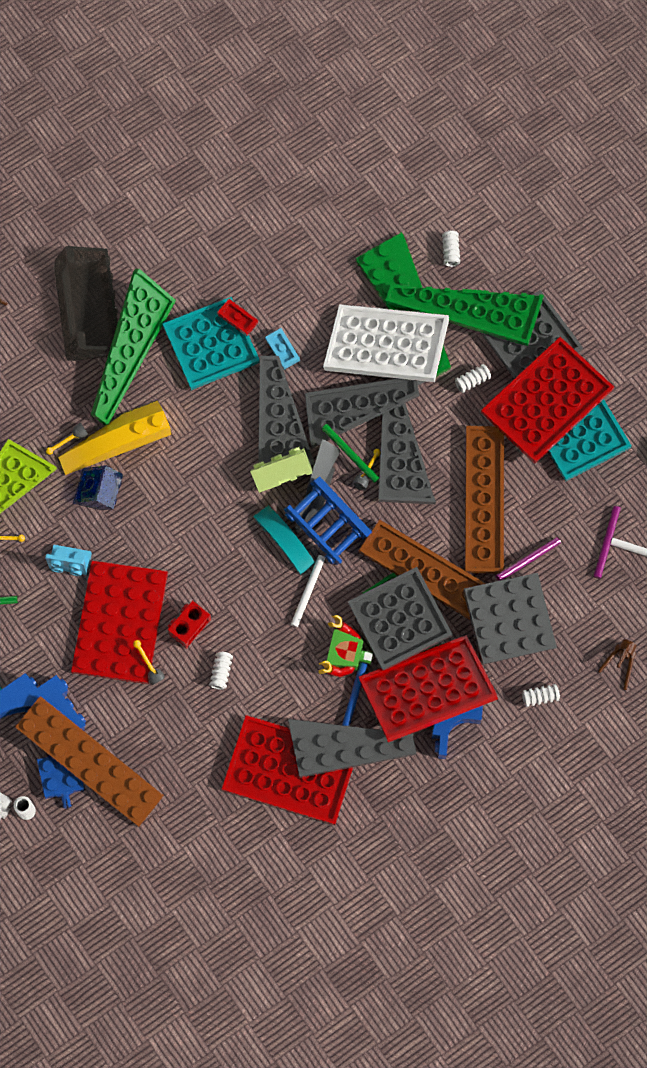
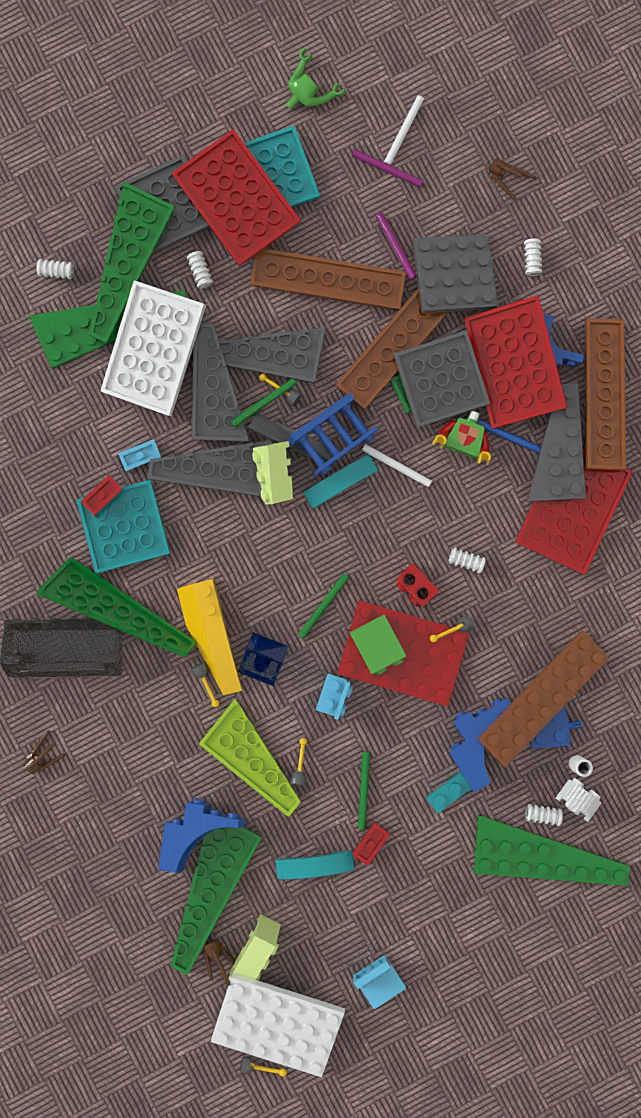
camera: 85 degrees left, 15 degrees up
(124, 591) = (378, 645): none -> bright green brick
(157, 539) = (322, 607): none -> green bar
(410, 784) = (605, 394): none -> dark orange plate

